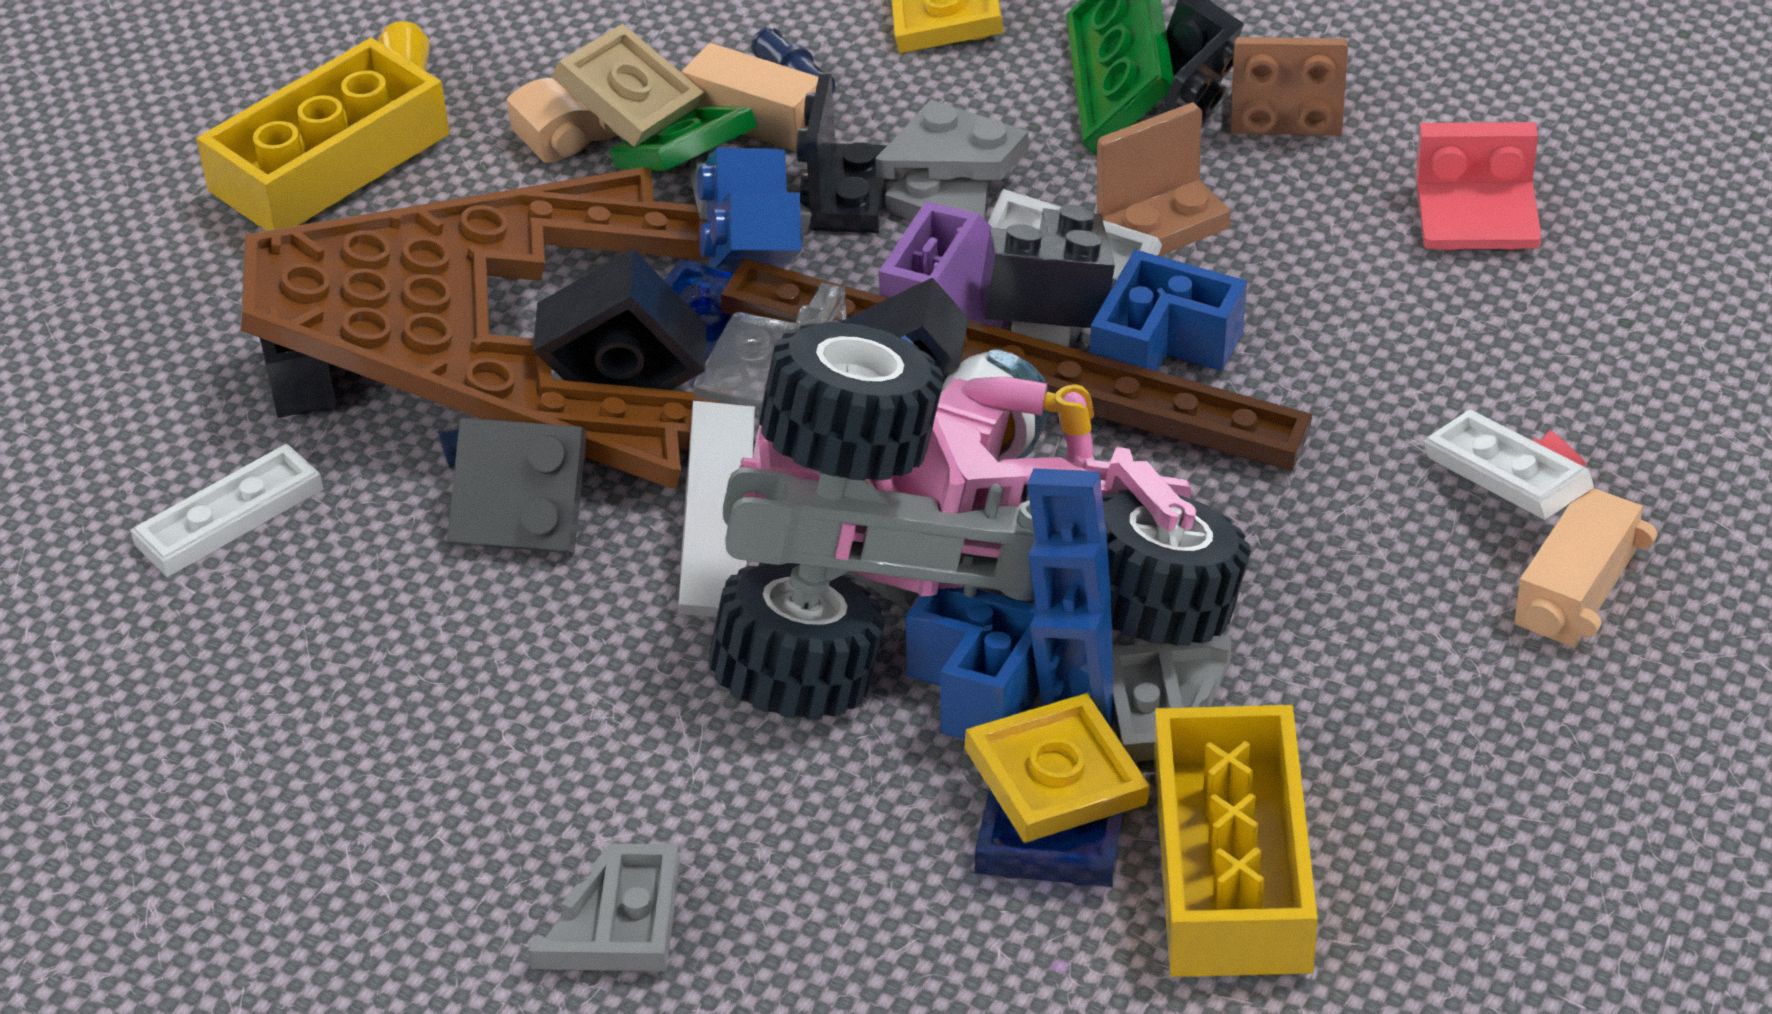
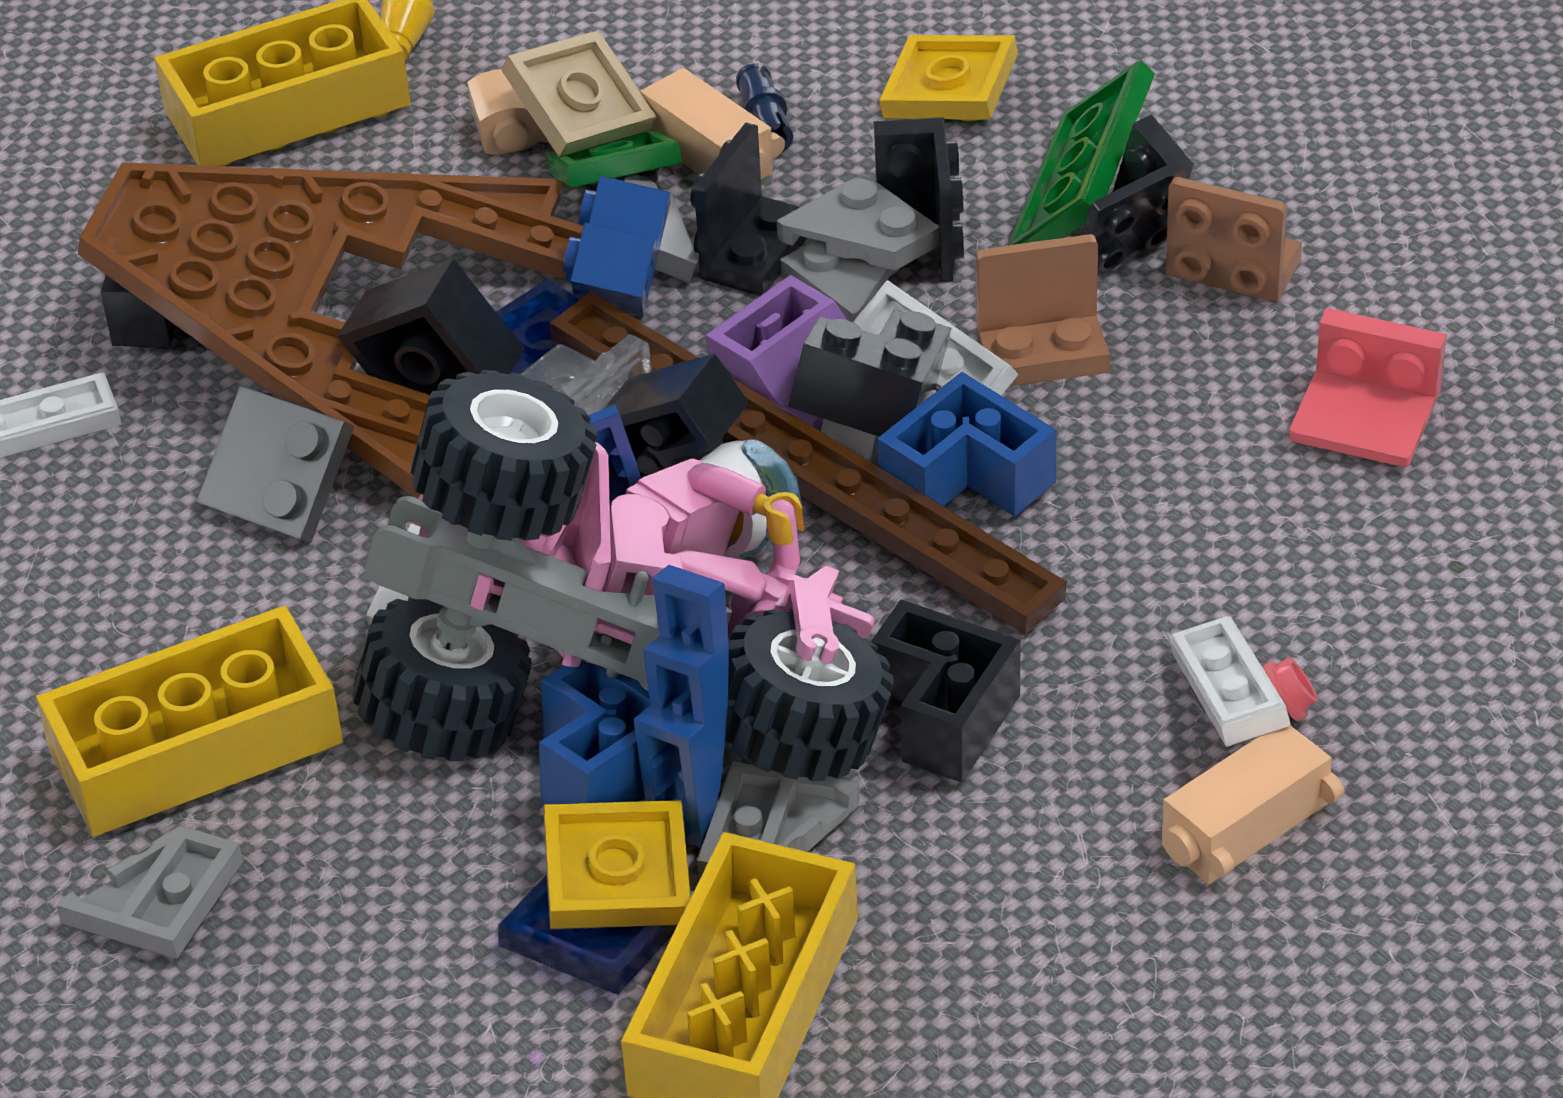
camera: 20 degrees right, 0 degrees up
(567, 743) = (189, 720): none -> yellow brick
(994, 82) = (917, 168): none -> black bracket
(1280, 522) = (950, 686): none -> black brick

